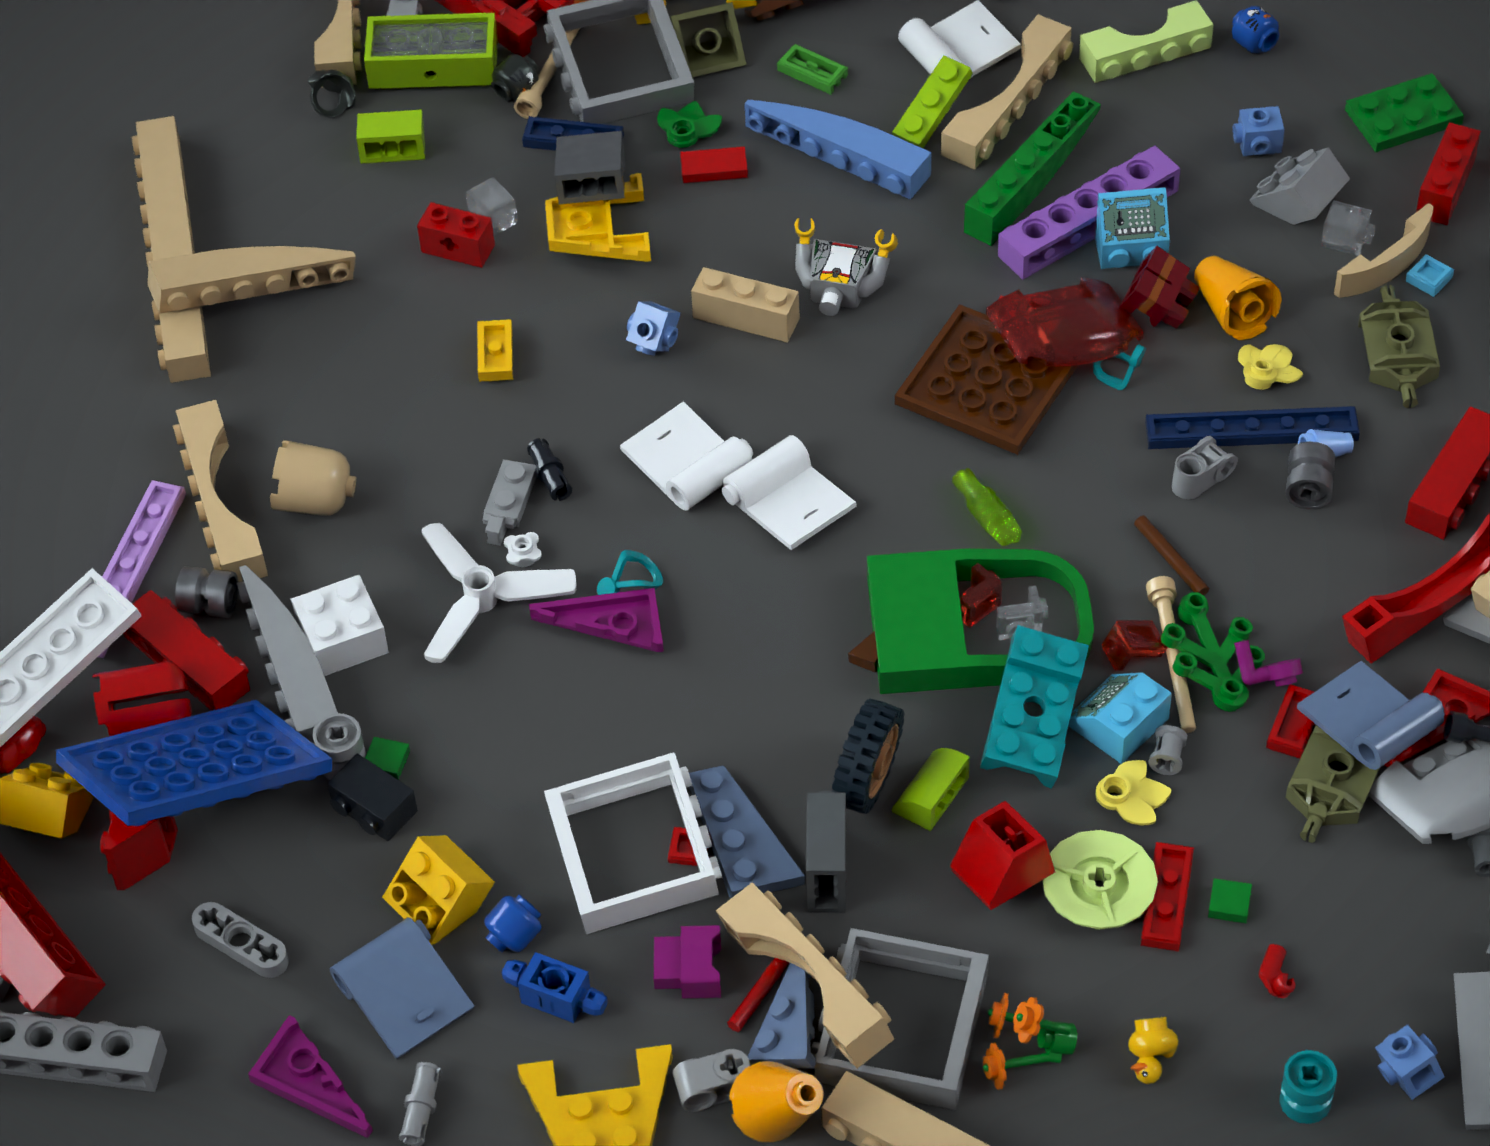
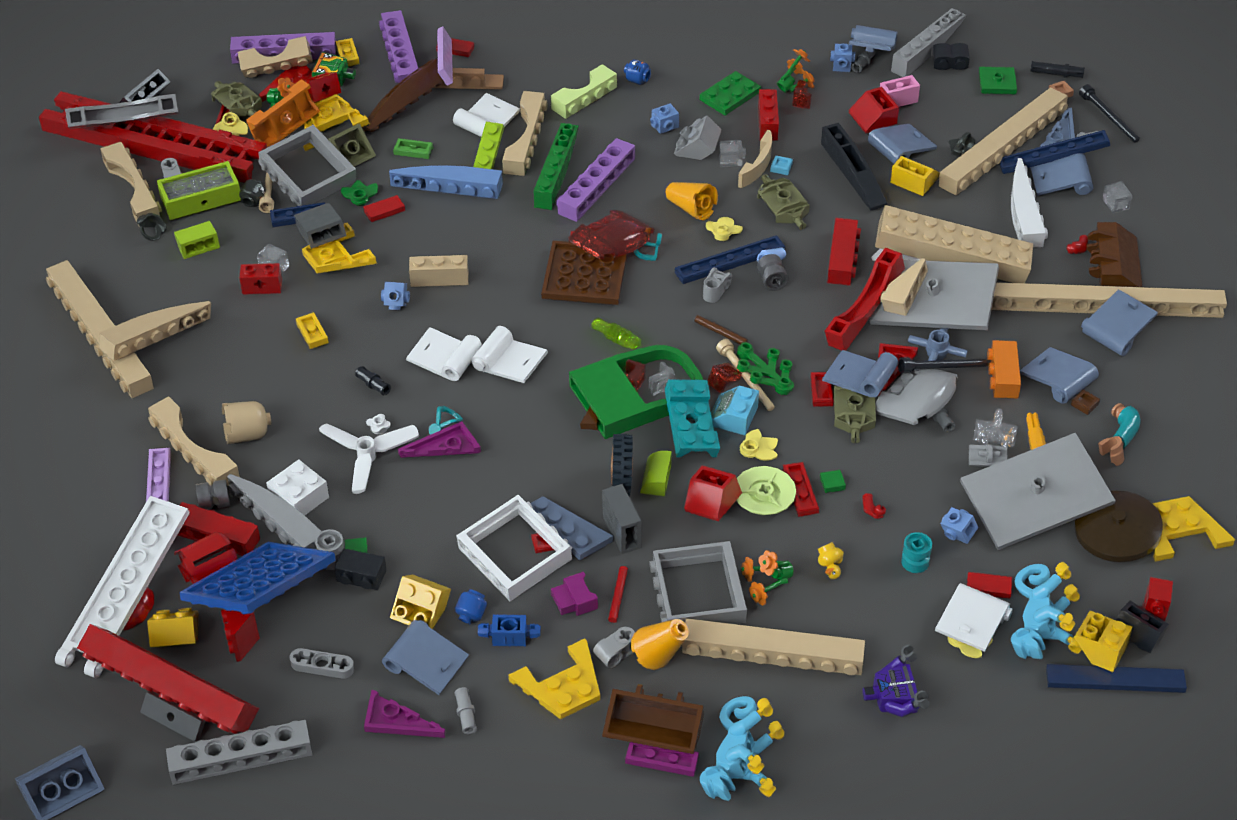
camera: 25 degrees left, 5 degrees down
(508, 499) = (356, 401): light grey hinge -> none
(788, 1024) = (641, 605): sand blue wing -> none
(839, 271) = (480, 242): light grey torso -> none
(849, 1018) = (605, 565): tan arch -> none
(1131, 226) = (624, 180): slope -> none
(1157, 286) = (653, 205): dark red hips -> none
(1168, 750) = (767, 420): light grey bush -> none
(1281, 672) = (805, 367): magenta plate -> none

